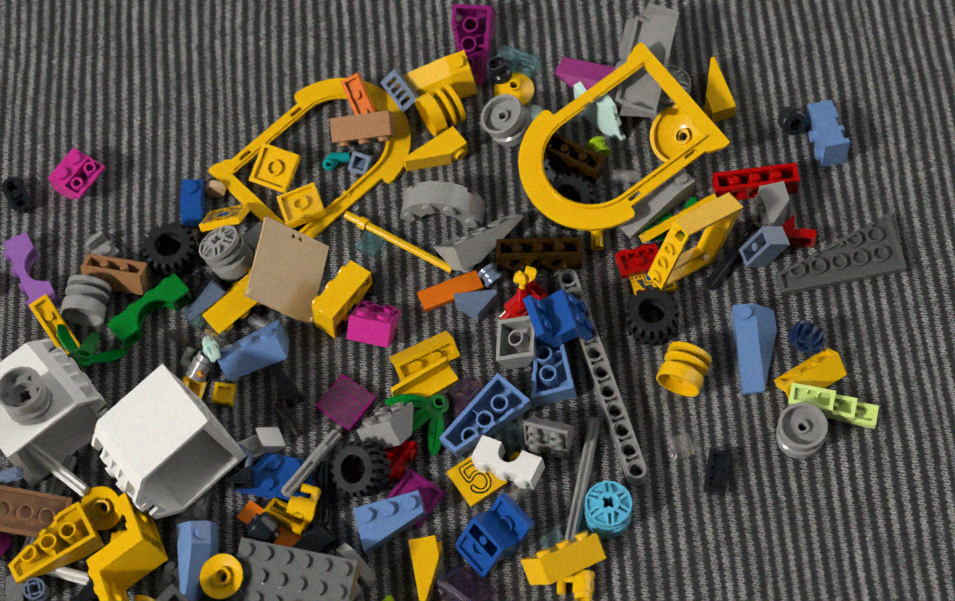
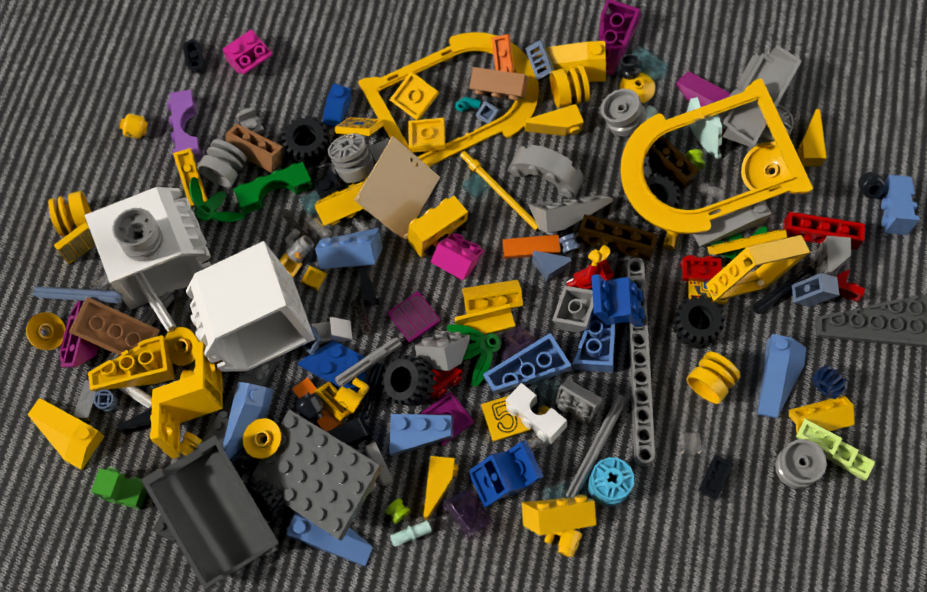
camera: 10 degrees right, 5 degrees up
(208, 297) = (323, 192): sand blue slope -> none
(211, 348) = (313, 236): light aqua axle -> none
(215, 189) = (359, 99): tan tile -> none
(243, 479) = (306, 358): black slope -> none

